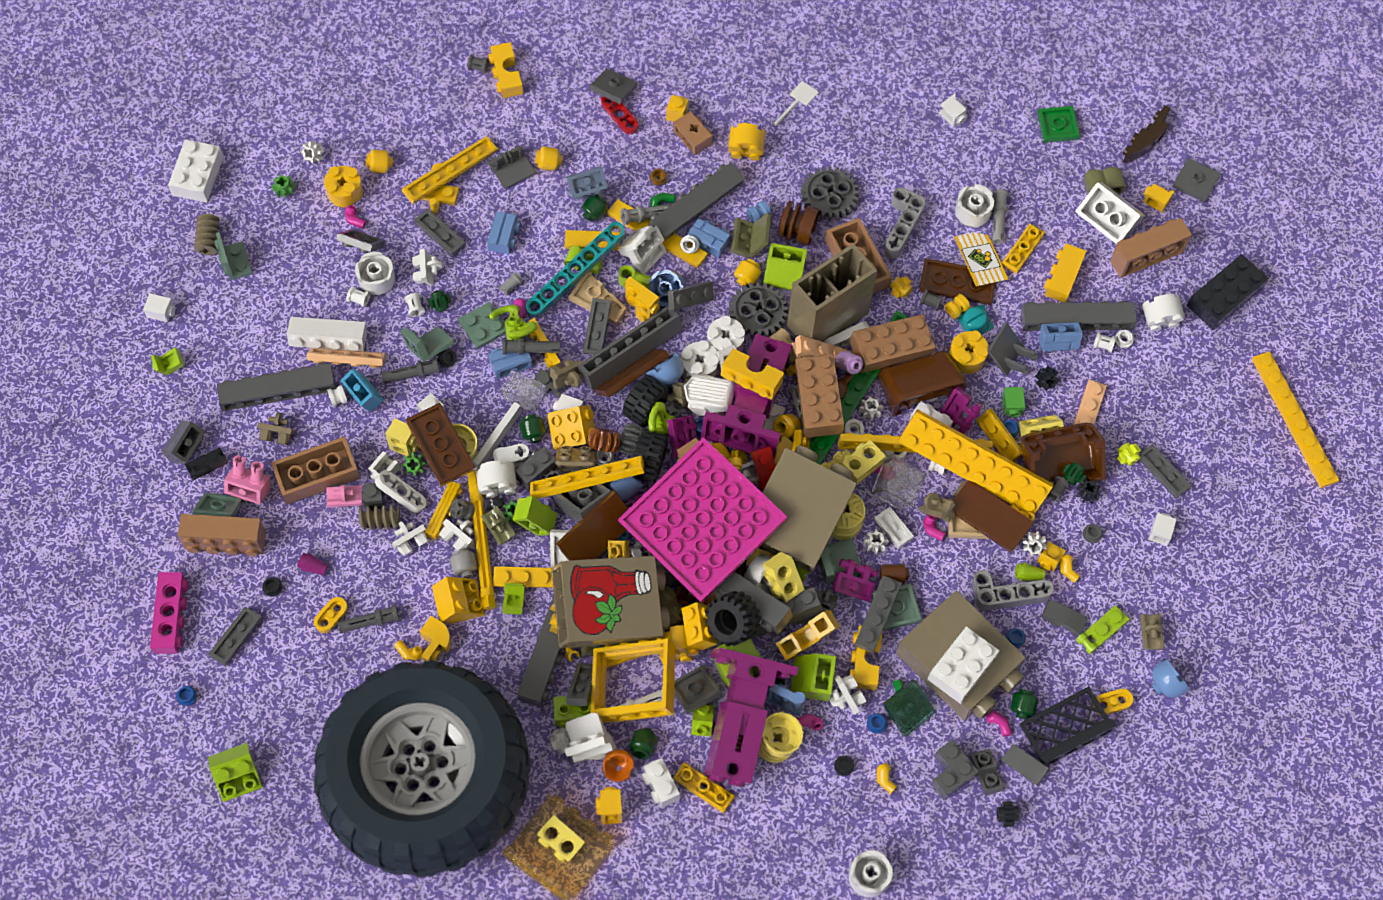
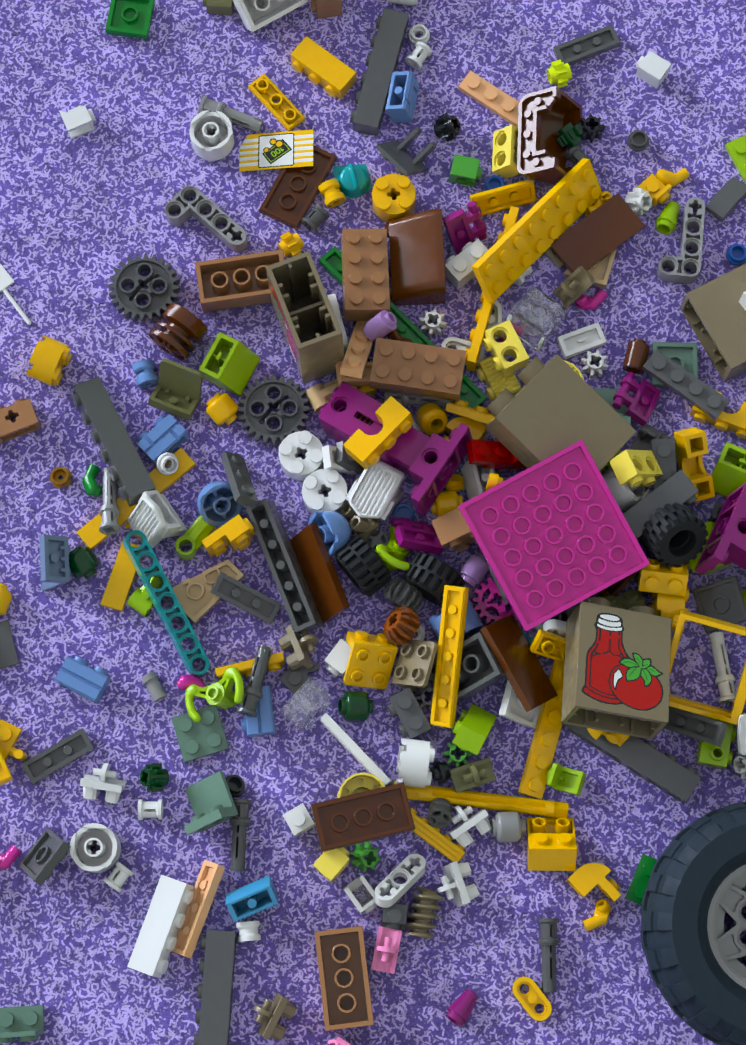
camera: 70 degrees left, 10 degrees up
(511, 454) = (385, 744): white piece -> none

